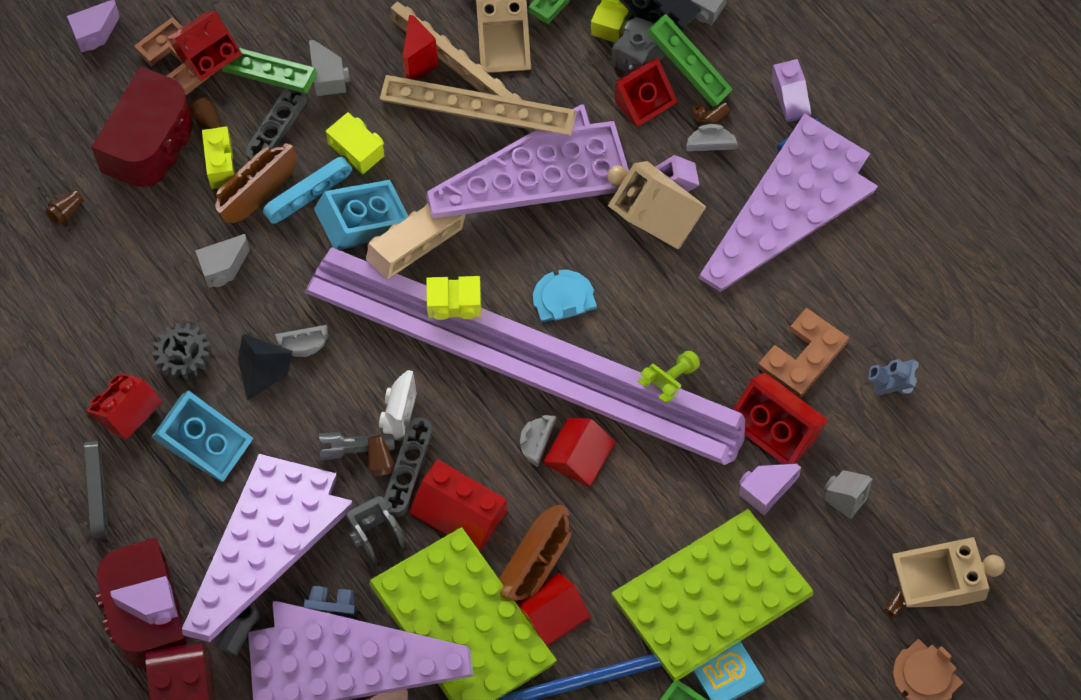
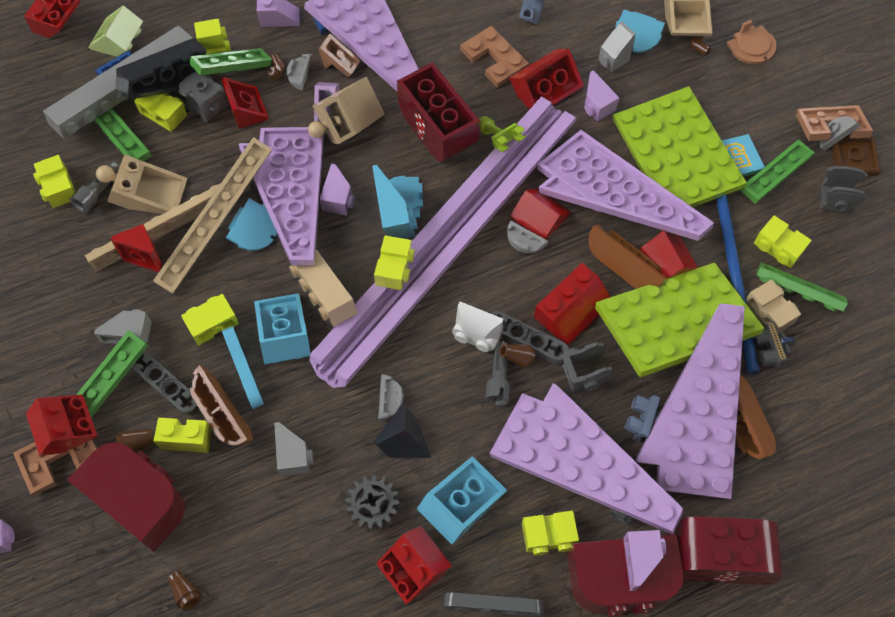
camera: 80 degrees left, 0 degrees up
(180, 528) = (549, 532): none -> neon yellow brick
(475, 145) = (251, 227): none -> medium azure piece
(532, 278) = (395, 216): none -> medium azure slope
(548, 222) = (336, 193): none -> lavender slope
(632, 512) = (599, 179): none -> lavender wing
(671, 296) = (437, 113): none -> dark red brick
(715, 33) = (212, 36): none -> neon yellow brick
(739, 173) = (337, 54): none -> nougat slope
(895, 518) = (646, 28): none -> medium azure piece

